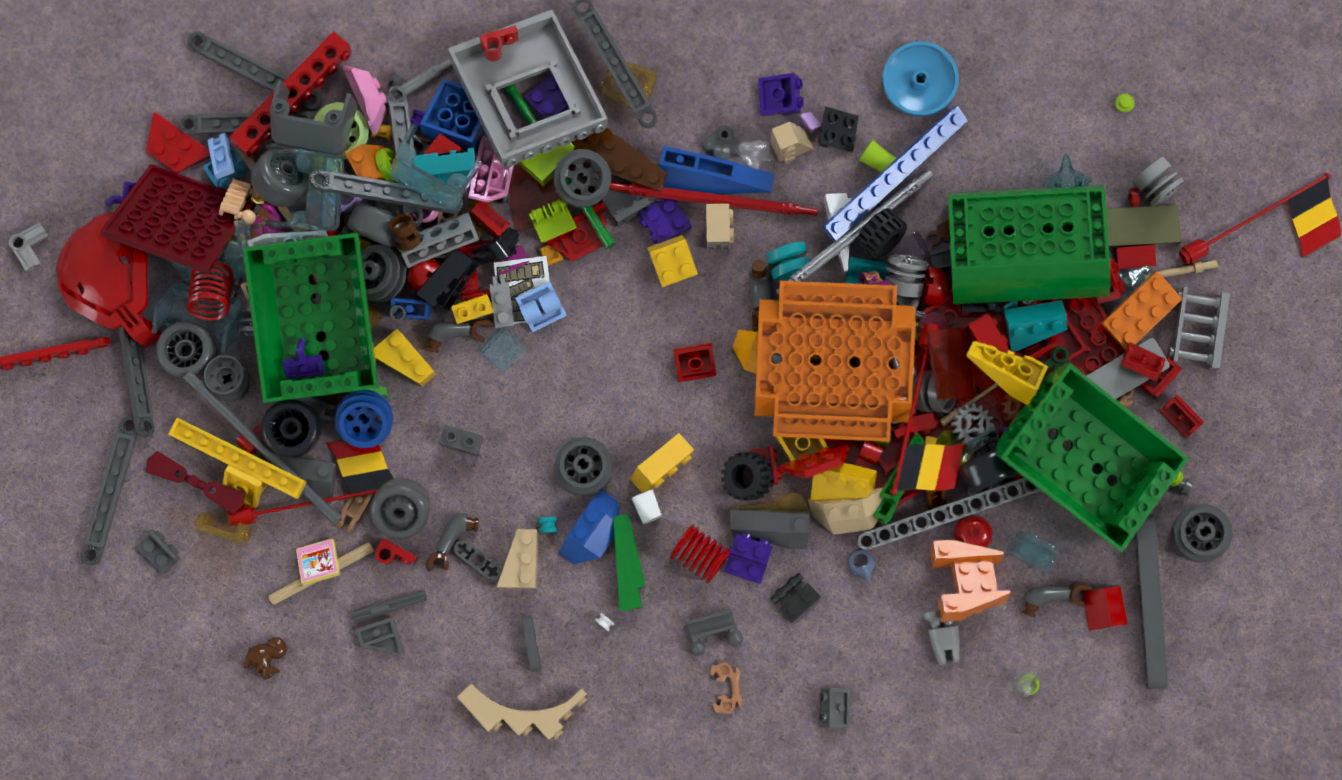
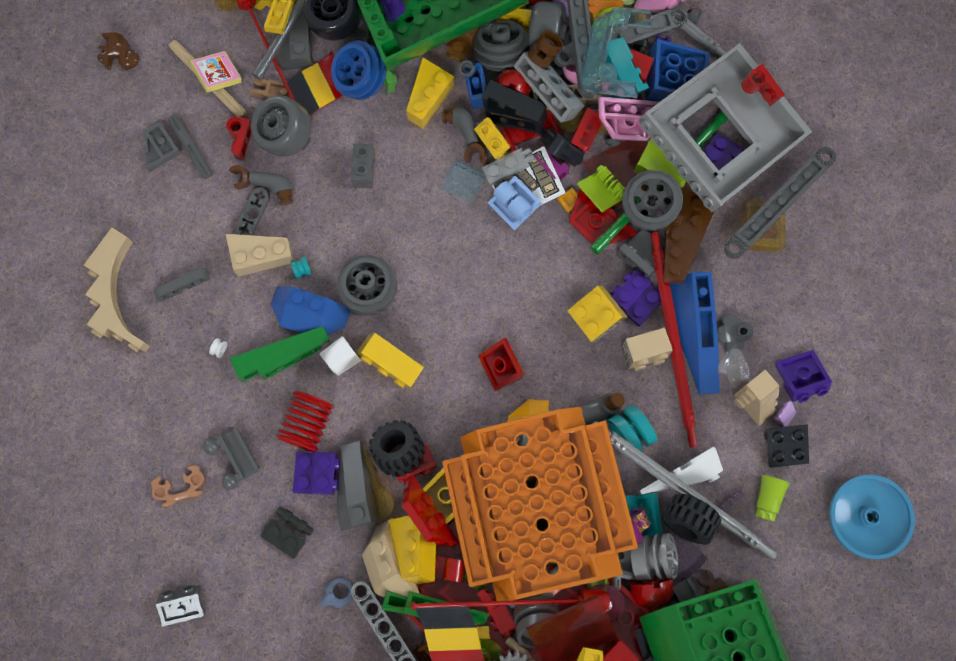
camera: 70 degrees right, 5 degrees down
(894, 173) = (761, 516): plate -> none

